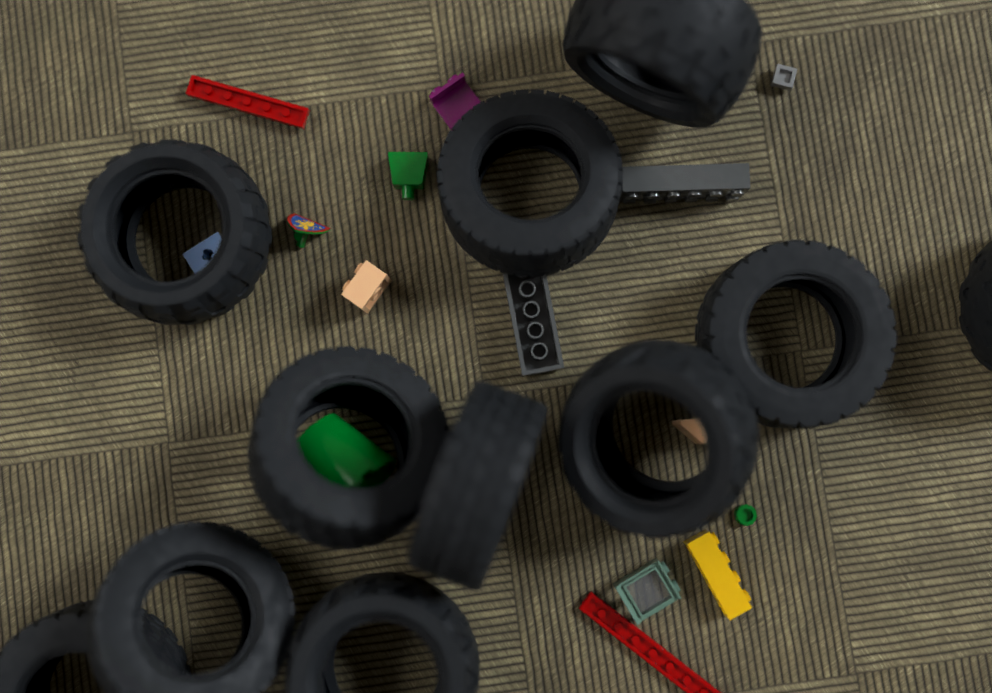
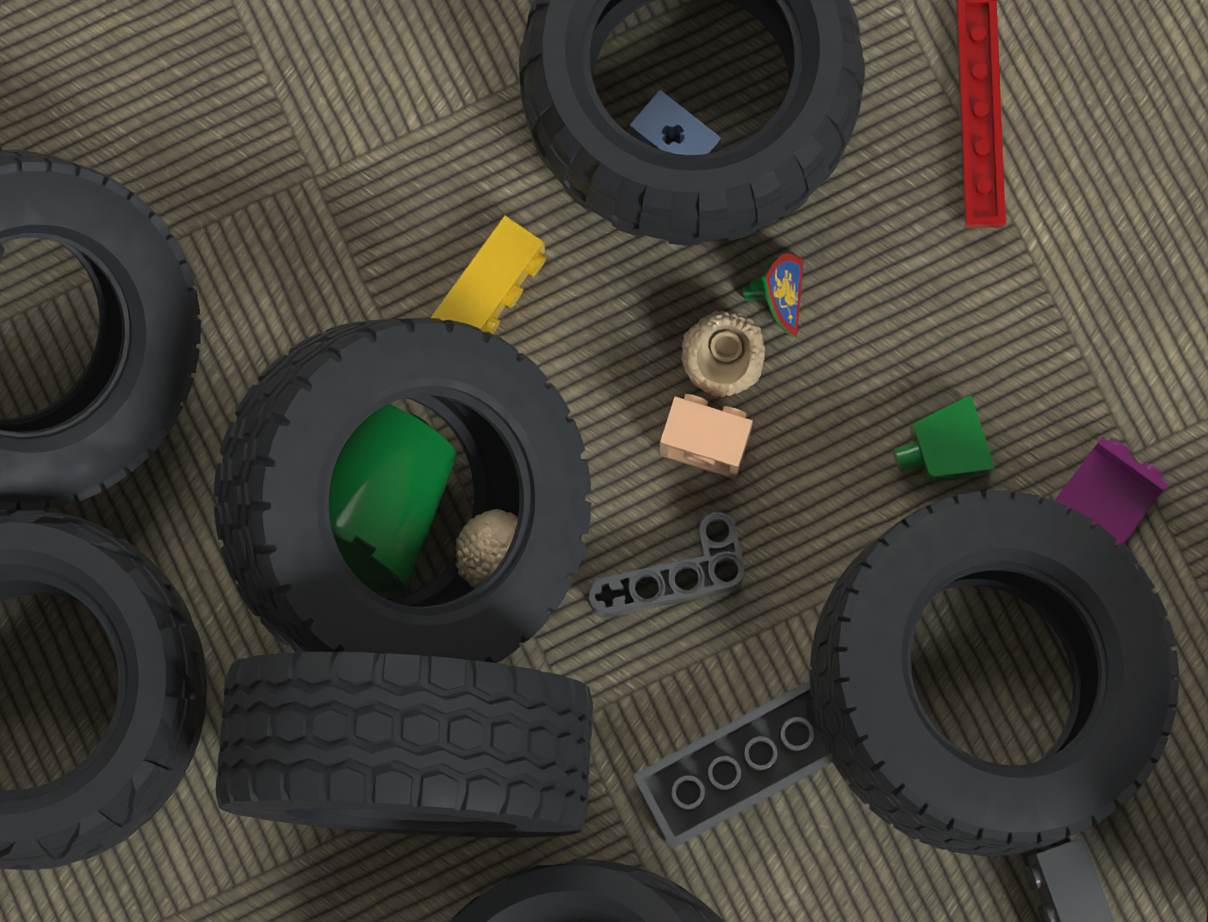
camera: 75 degrees right, 5 degrees down
(249, 366) = (493, 277): none -> yellow brick
(327, 265) = (723, 353): none -> tan hair
(385, 412) = (484, 545): none -> tan hair
(428, 330) = (665, 575): none -> dark grey beam

